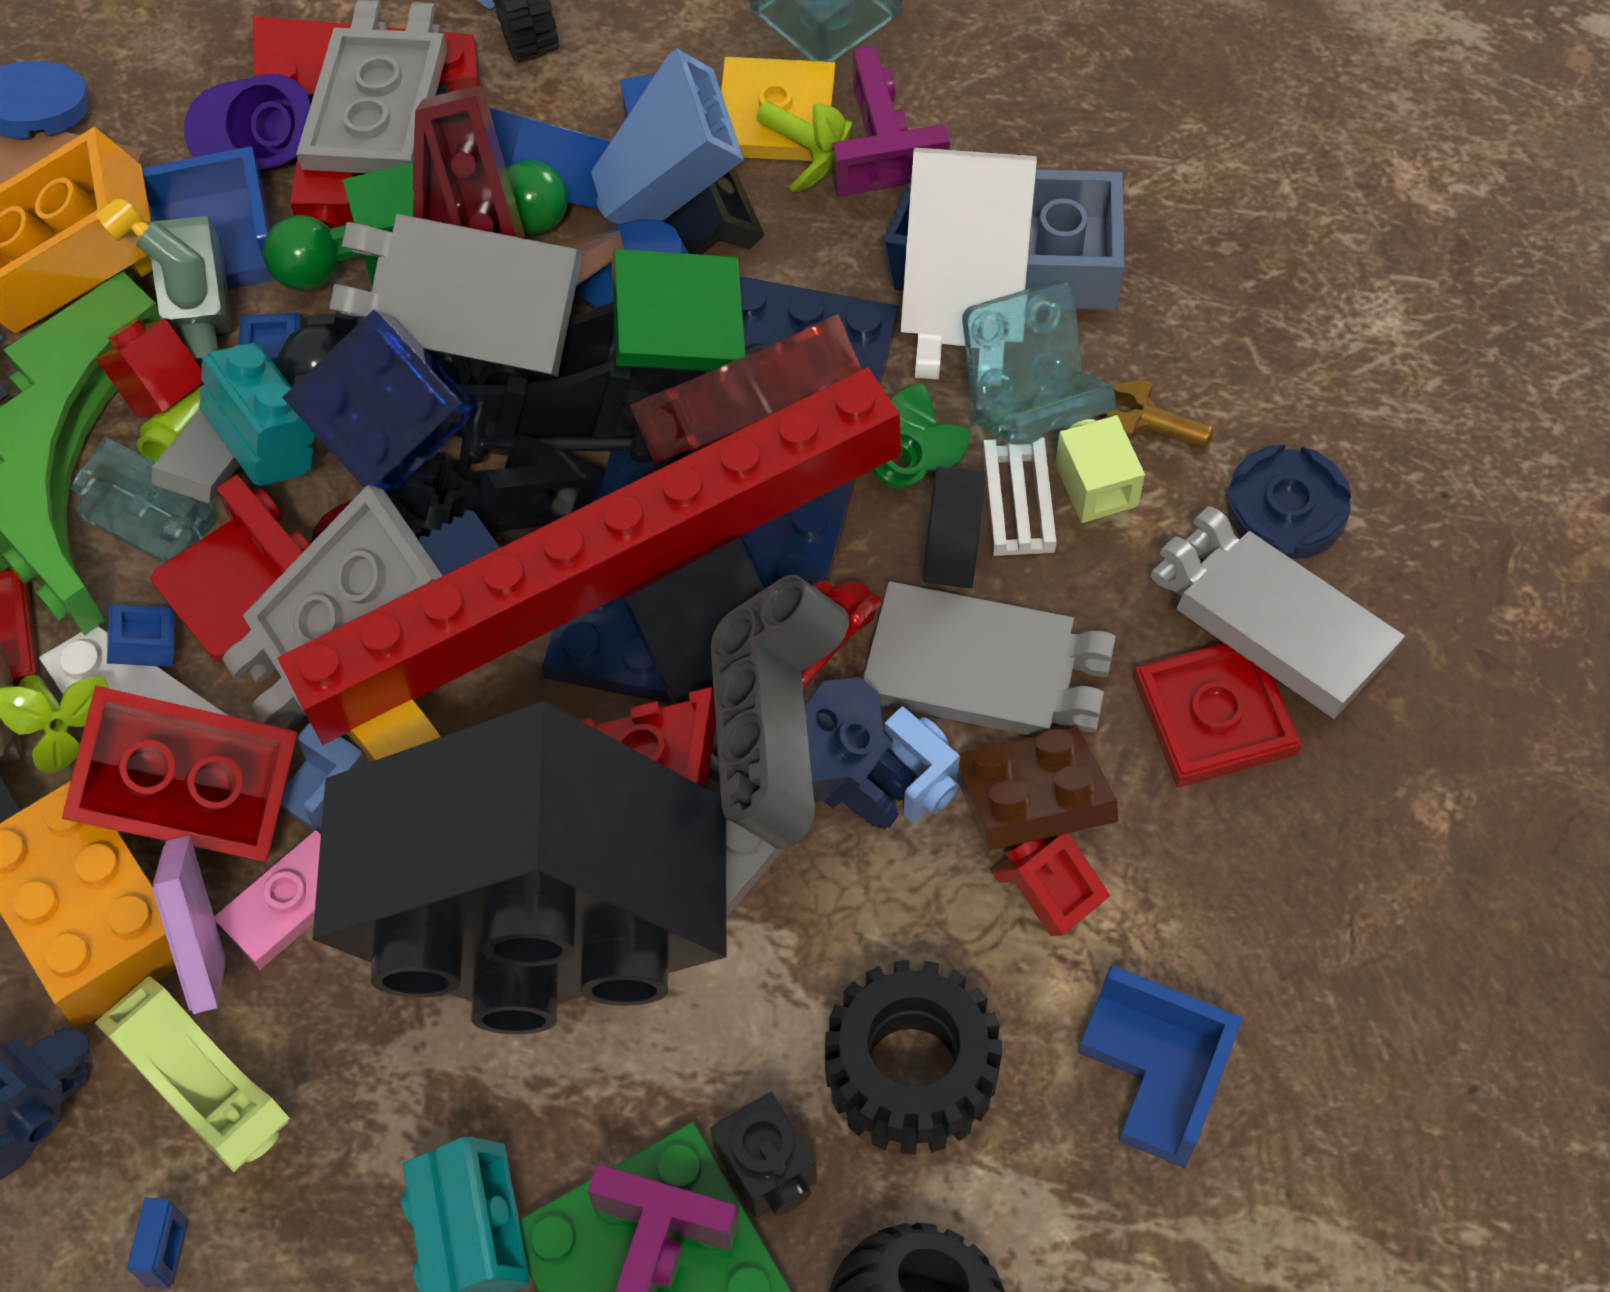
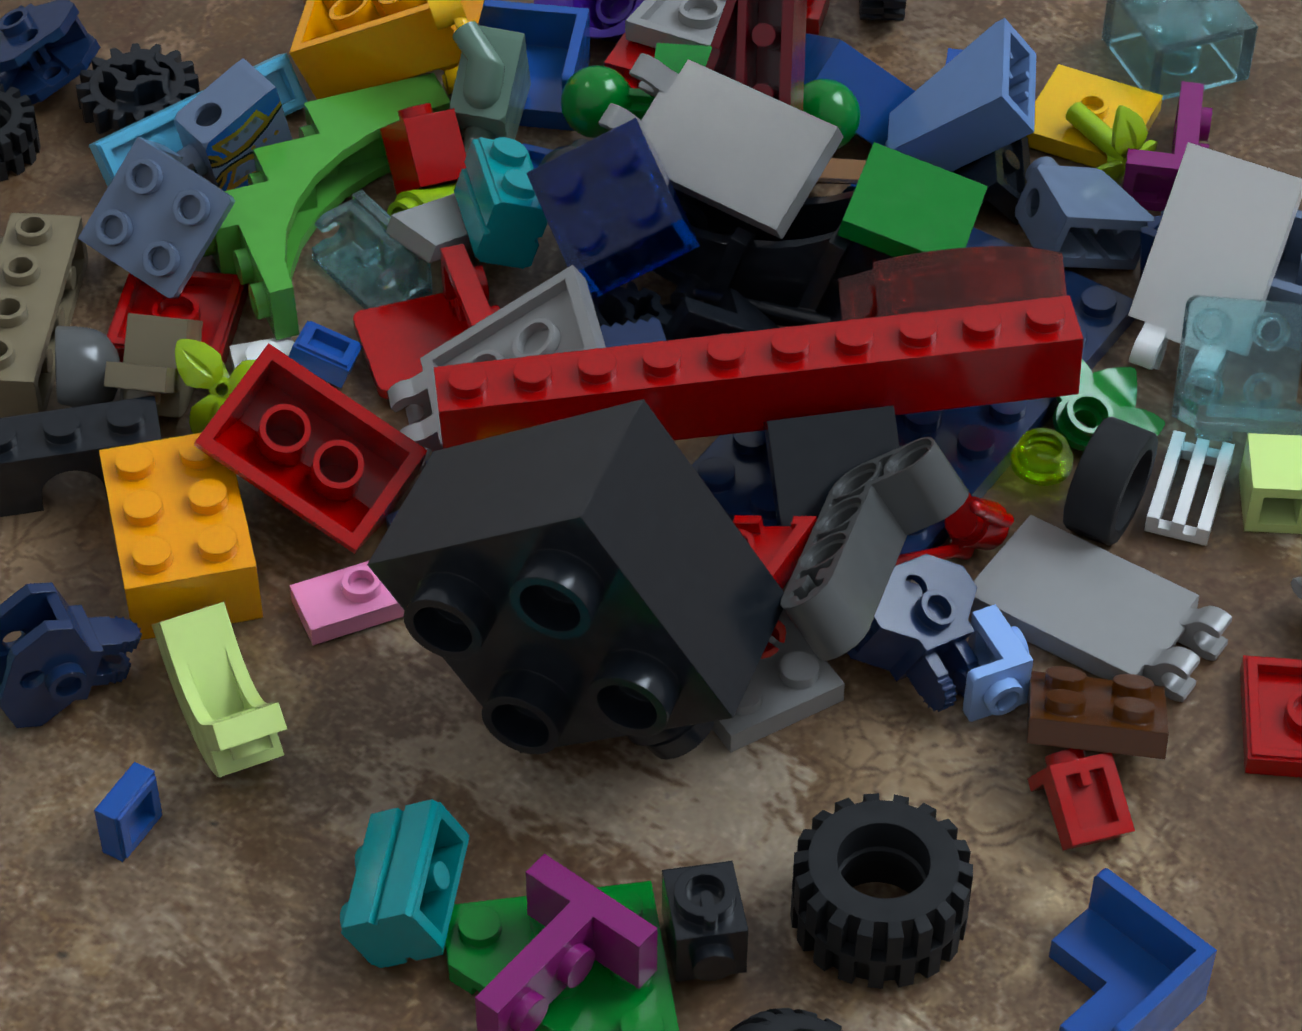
camera: 20 degrees right, 15 degrees down
(189, 924) = (267, 562): lavender tile -> none
(813, 232) = (1081, 216): none -> sand blue torso
(874, 512) = (1042, 457): none -> clear neon green plate

